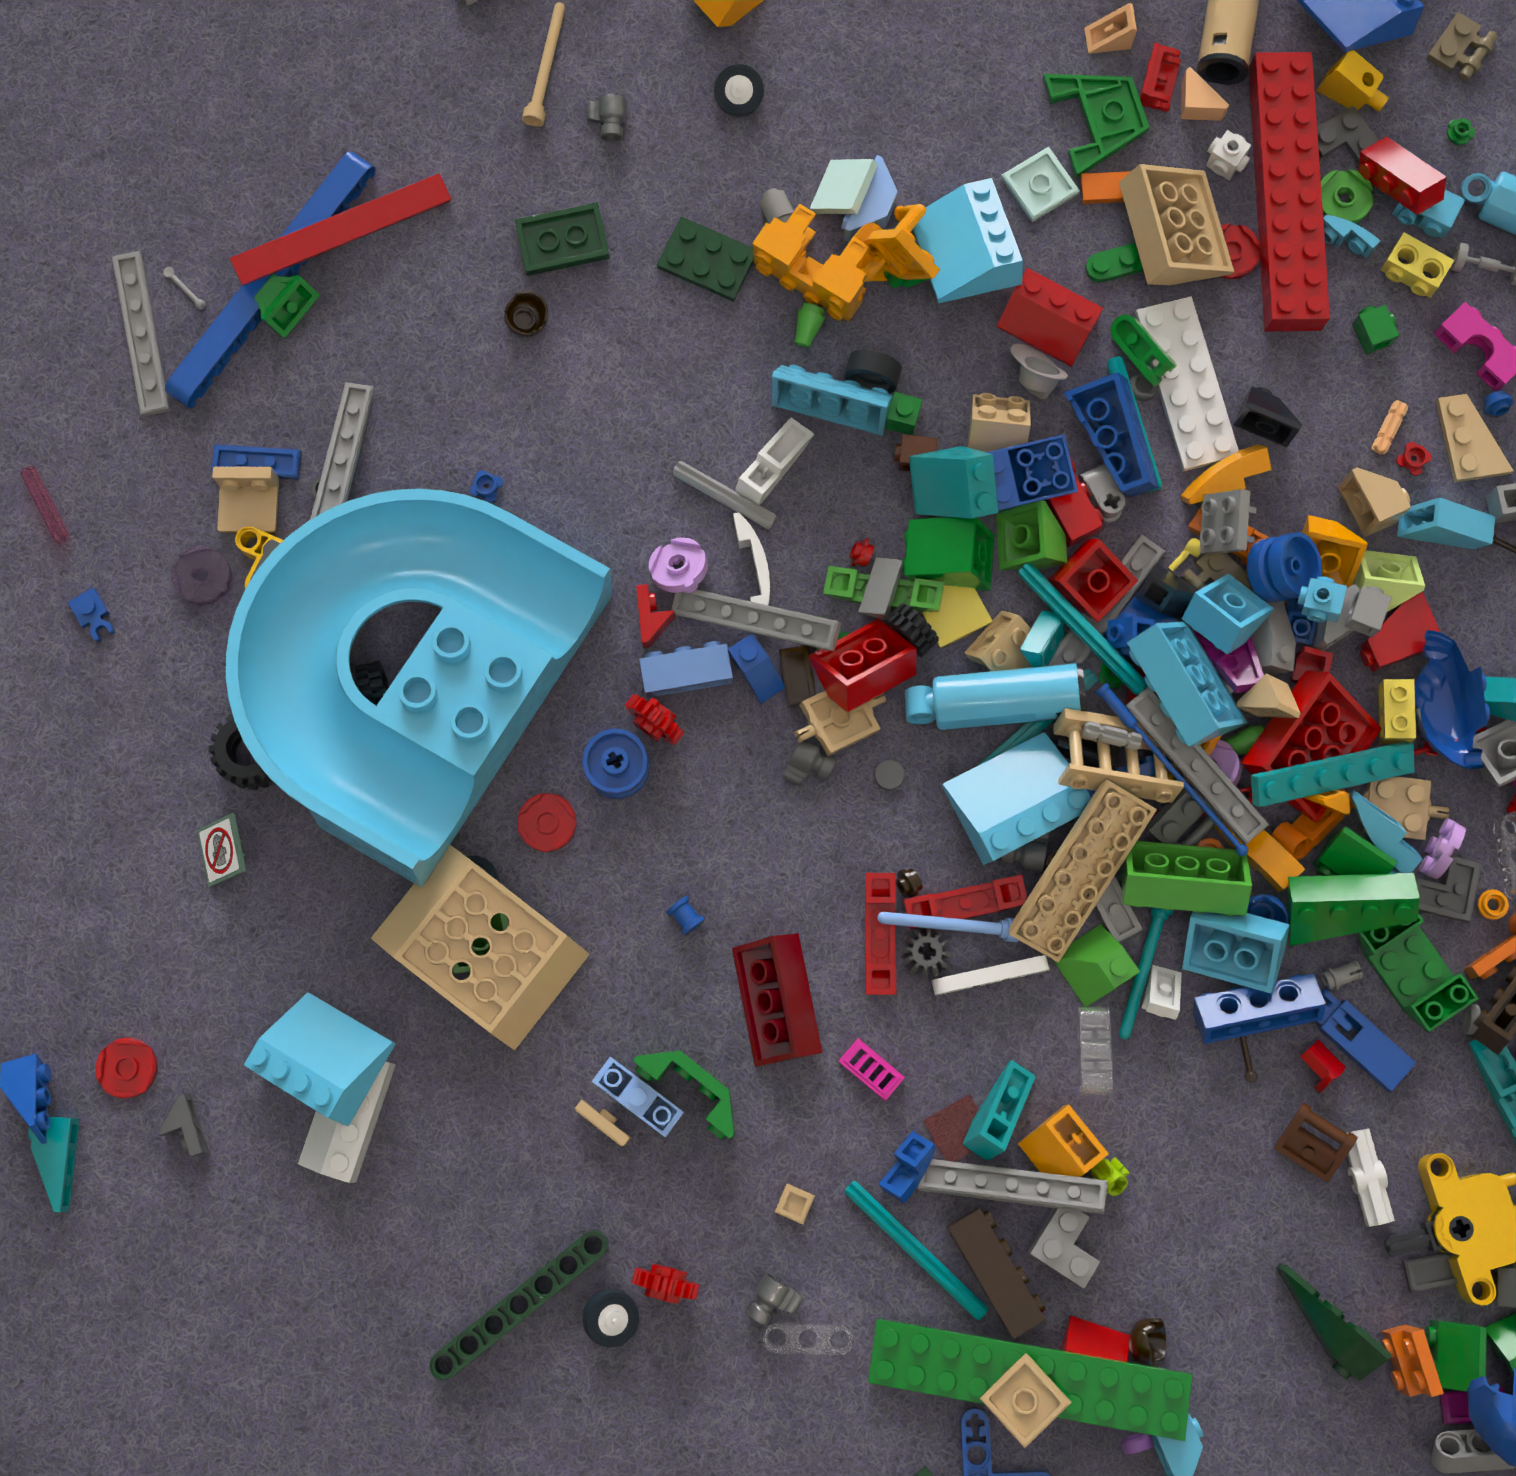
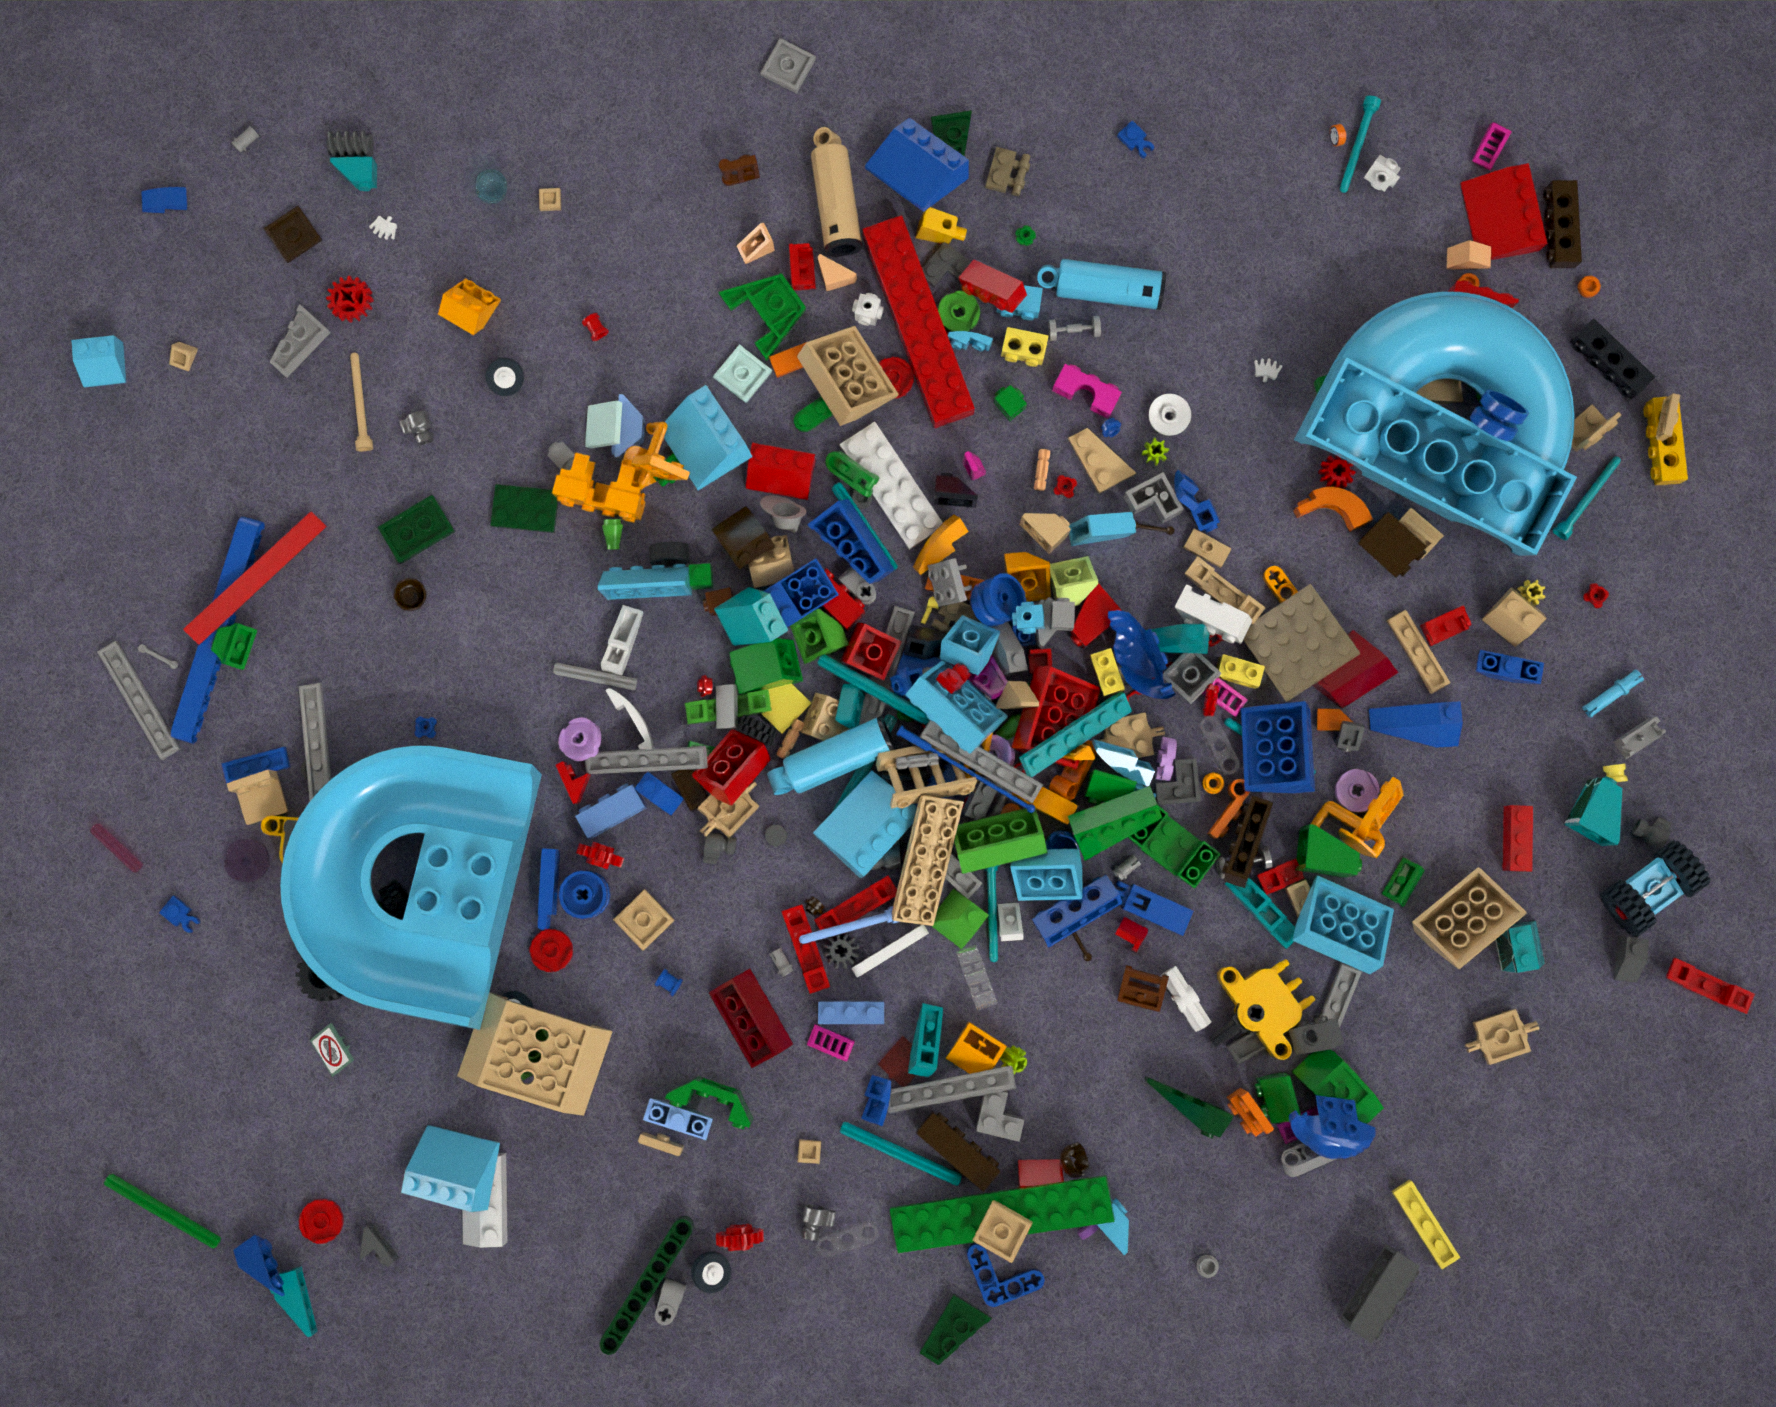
camera: 20 degrees left, 5 degrees up
(545, 1333) = (670, 1298): none -> light grey piece
(572, 737) = (548, 886): none -> blue hinge
(680, 824) = (644, 919): none -> tan plate
(841, 941) = (781, 962): none -> light grey pin
(873, 67) = (595, 326): none -> red bush
(913, 1037) = (851, 1012): none -> medium blue brick
(949, 657) = (790, 739): none -> light nougat axle
(975, 381) = (742, 537): none -> dark brown brick
(1196, 645) = (954, 678): none -> red plate
(1302, 391) = (973, 465): none -> dark pink slope

